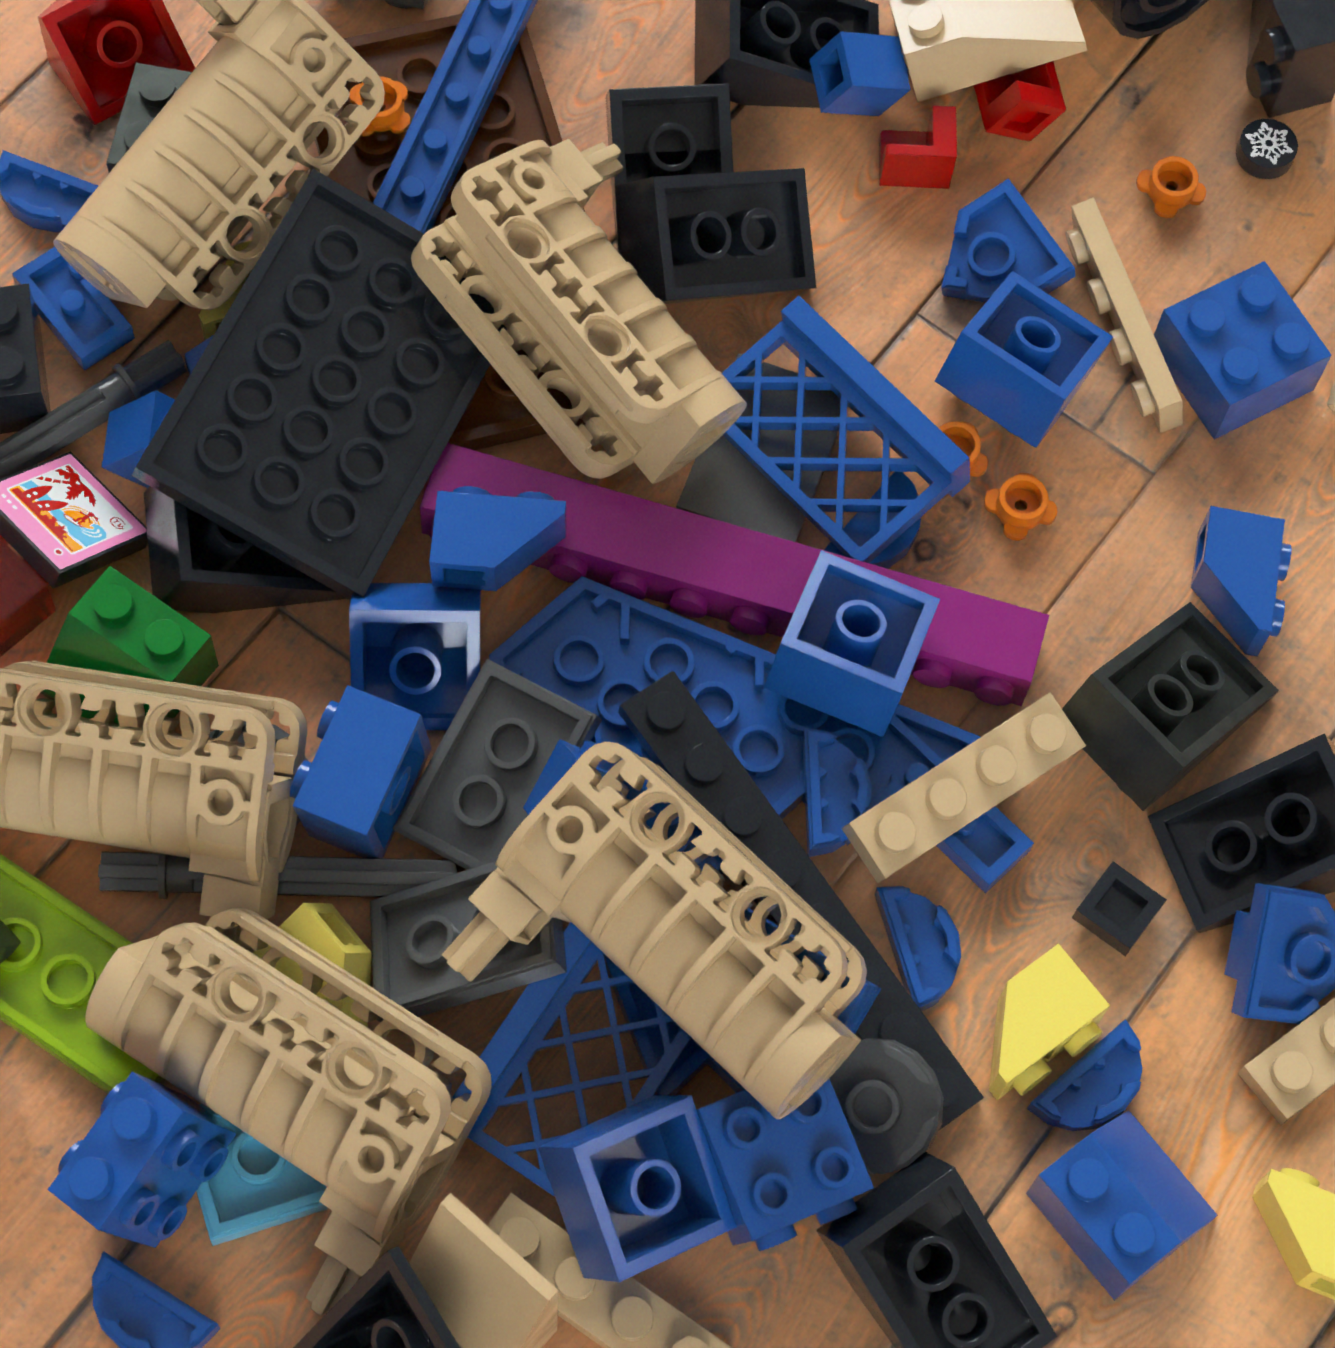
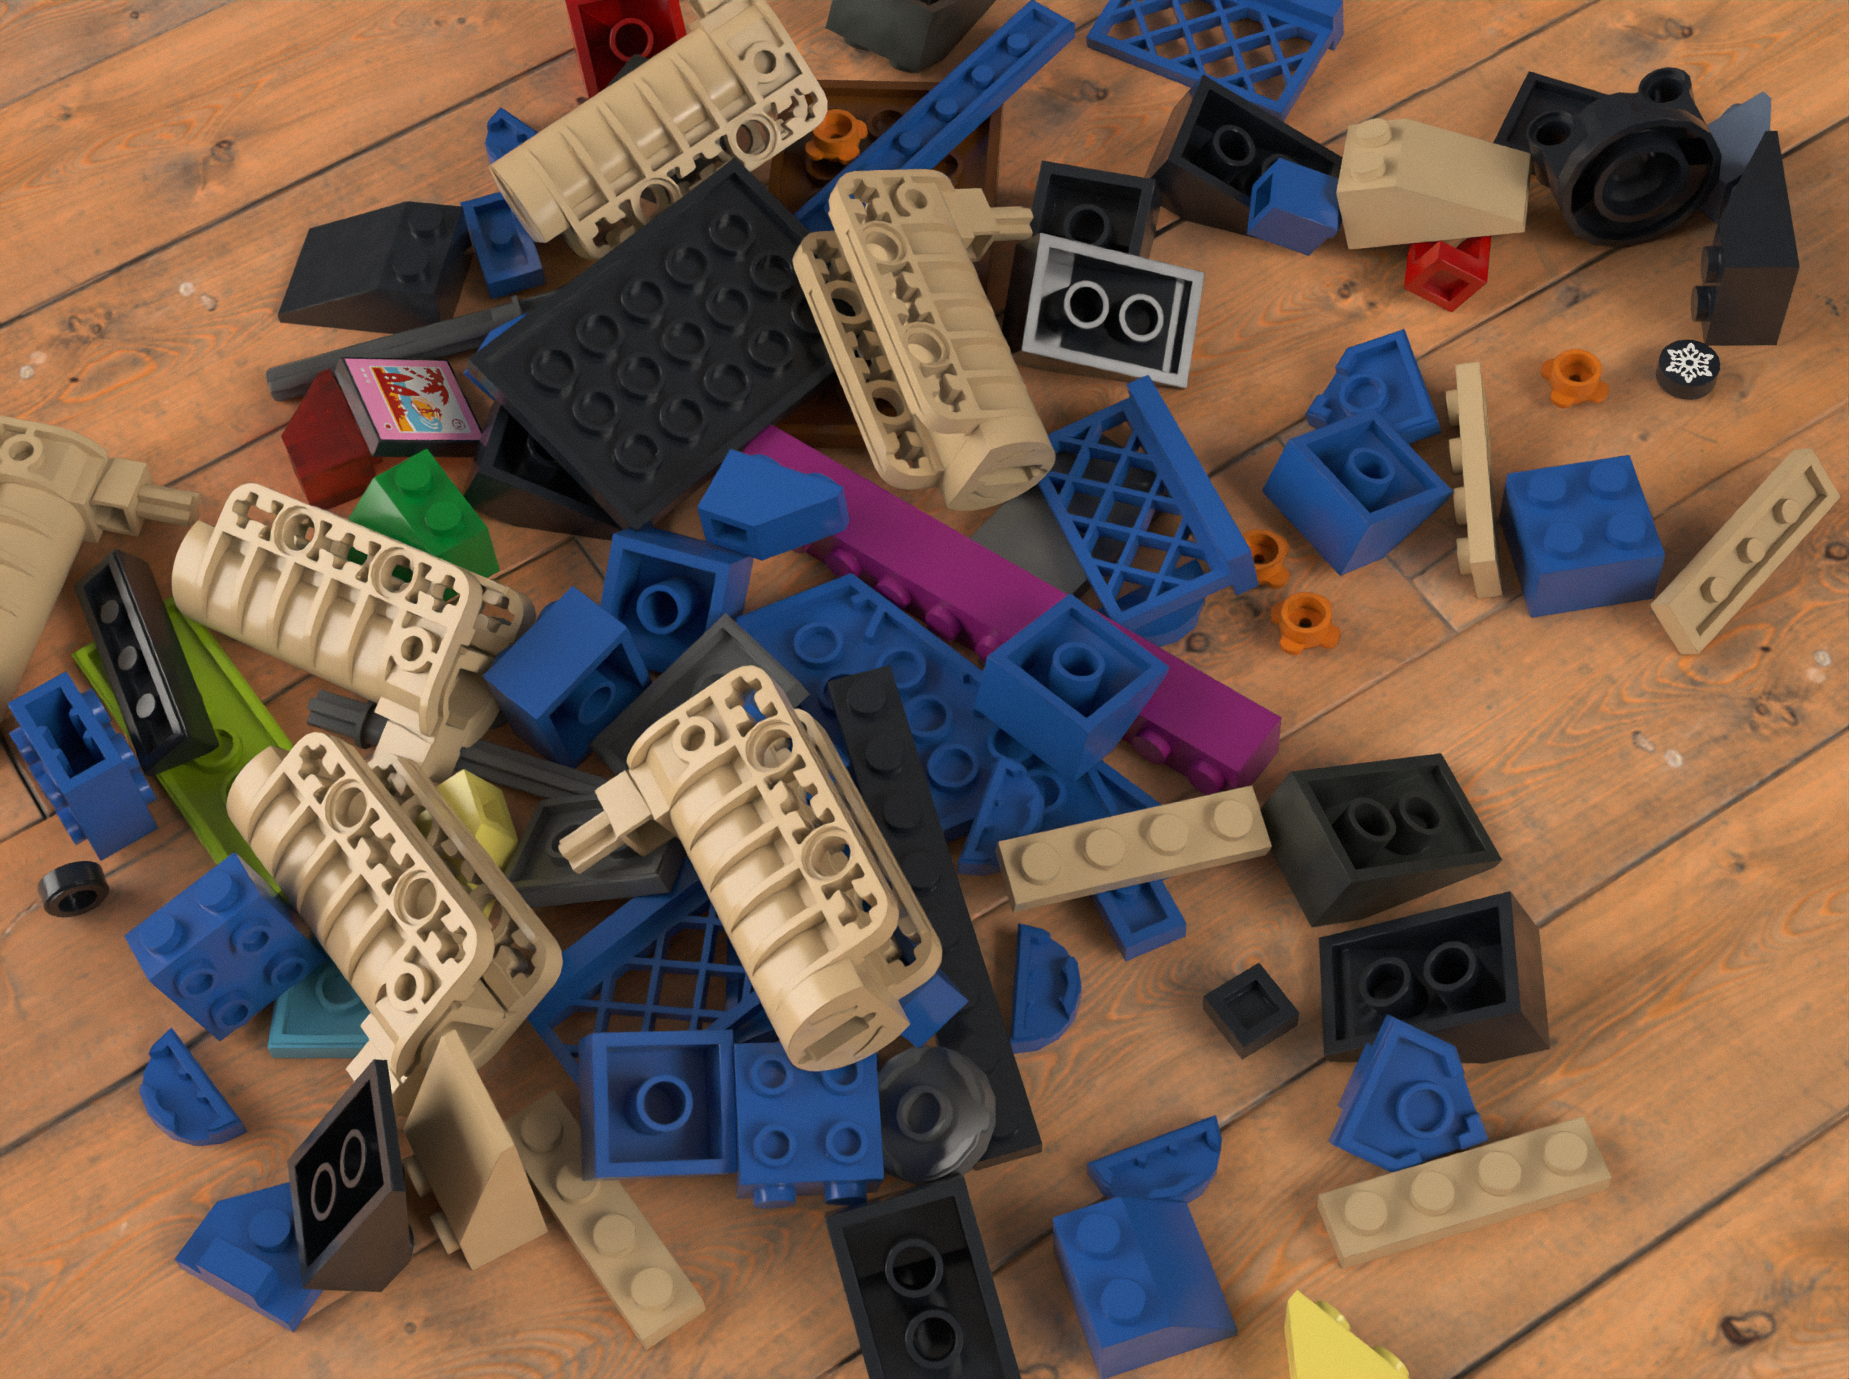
camera: 30 degrees right, 10 degrees down
(918, 156) = (1333, 299): red panel -> none
(1038, 1017) = (1126, 1088): light yellow slope -> none
(1238, 574) = (1499, 734): blue slope -> none

